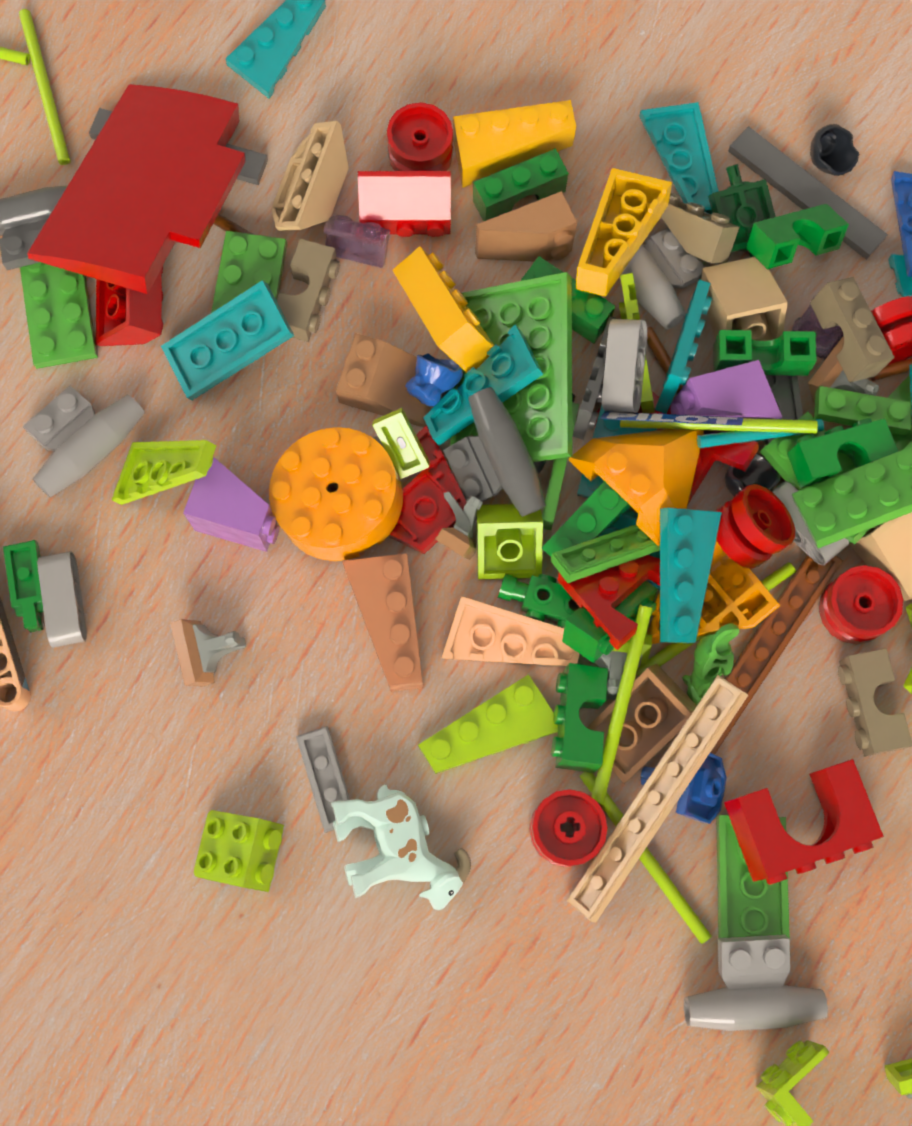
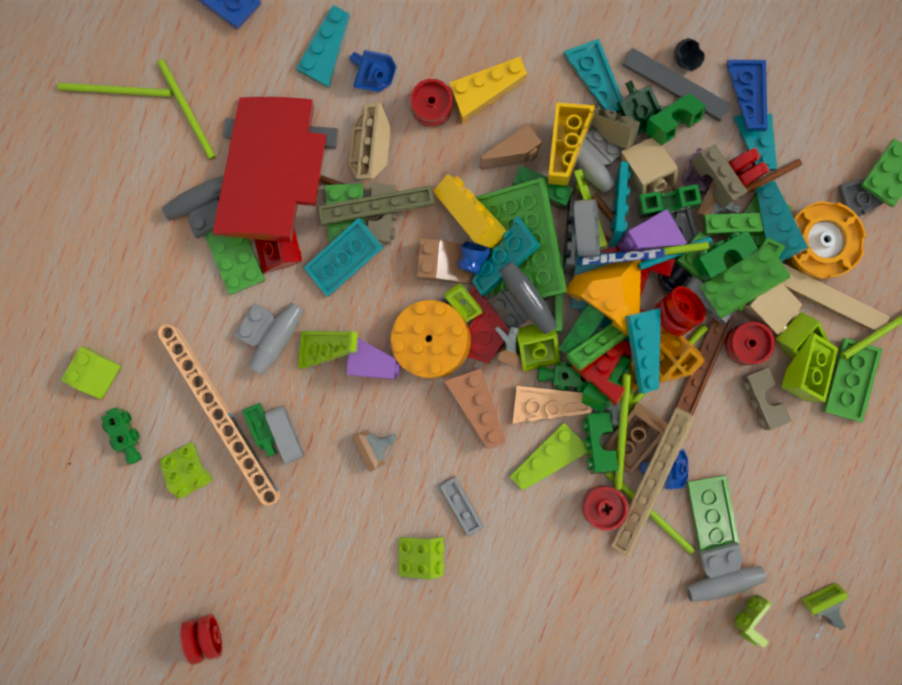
camera: 10 degrees left, 10 degrees up
(297, 271) = (376, 205): none -> olive tile
(342, 80) = (374, 70): none -> blue piece
(357, 241) = (406, 175): bracket -> none
(401, 846) = (513, 536): light aqua animal -> none
(406, 201) = (431, 146): slope -> none
(502, 190) = (506, 112): green arch -> none
(711, 658) = (668, 397): bright green animal -> none
(773, 852) = (761, 474): red arch -> none

